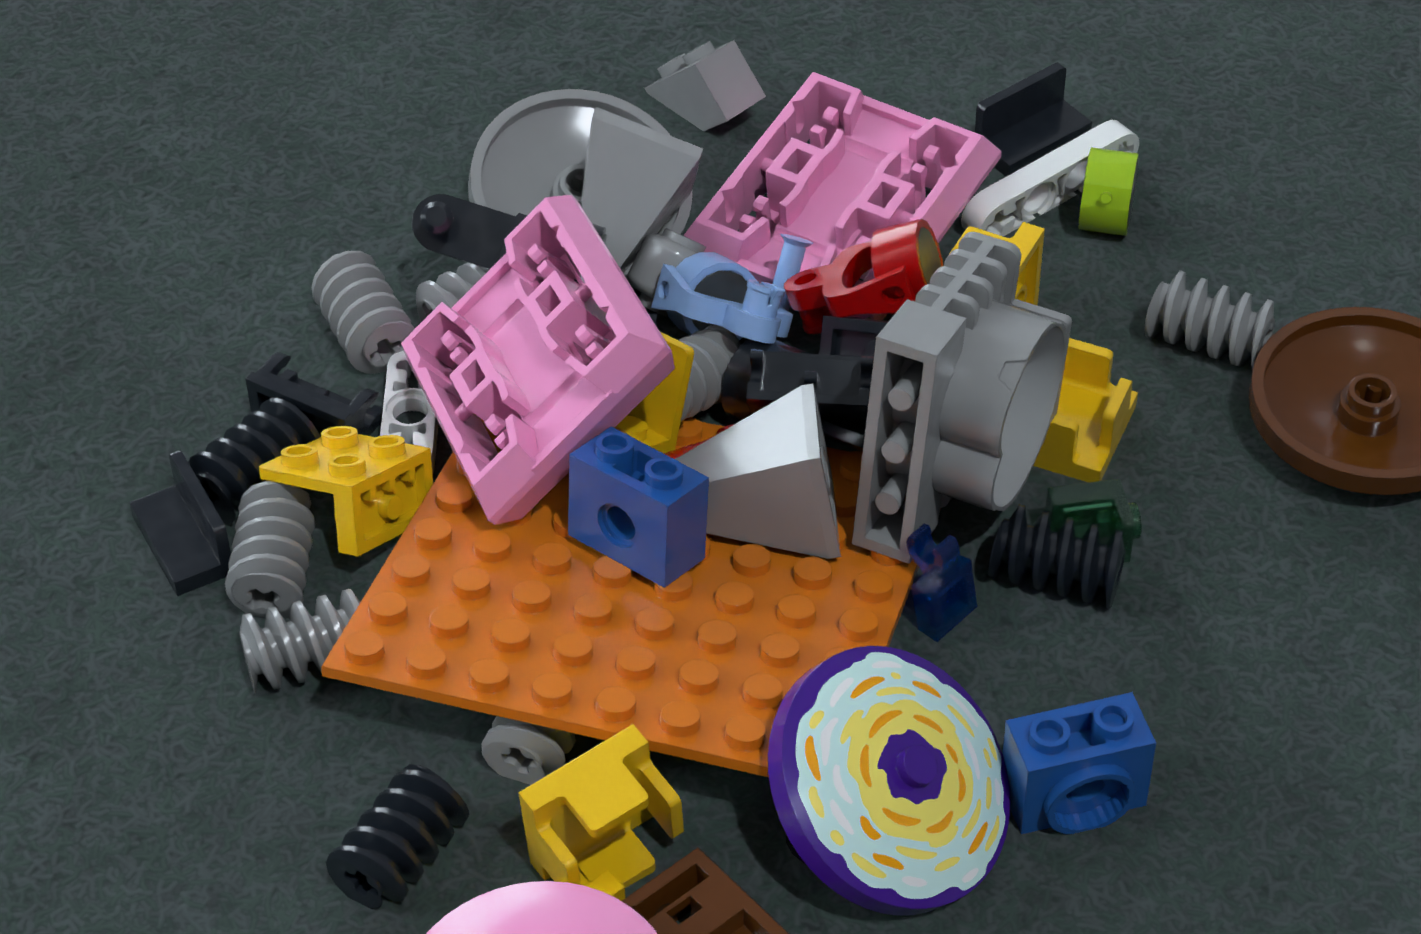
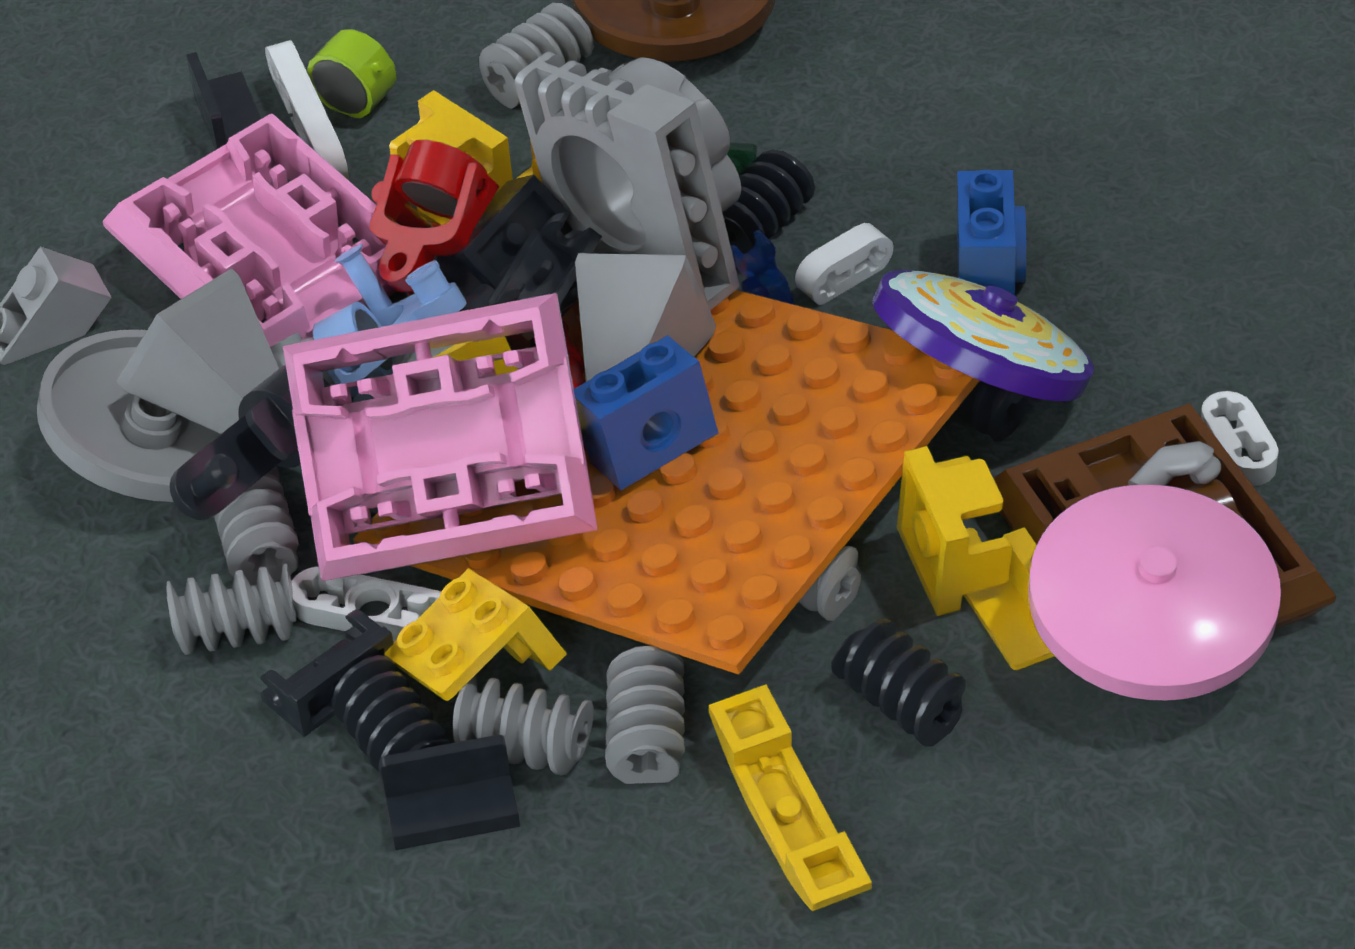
camera: 70 degrees left, 0 degrees up
(228, 790) = (784, 802): none -> yellow slope
(1009, 654) = (843, 263): none -> white beam

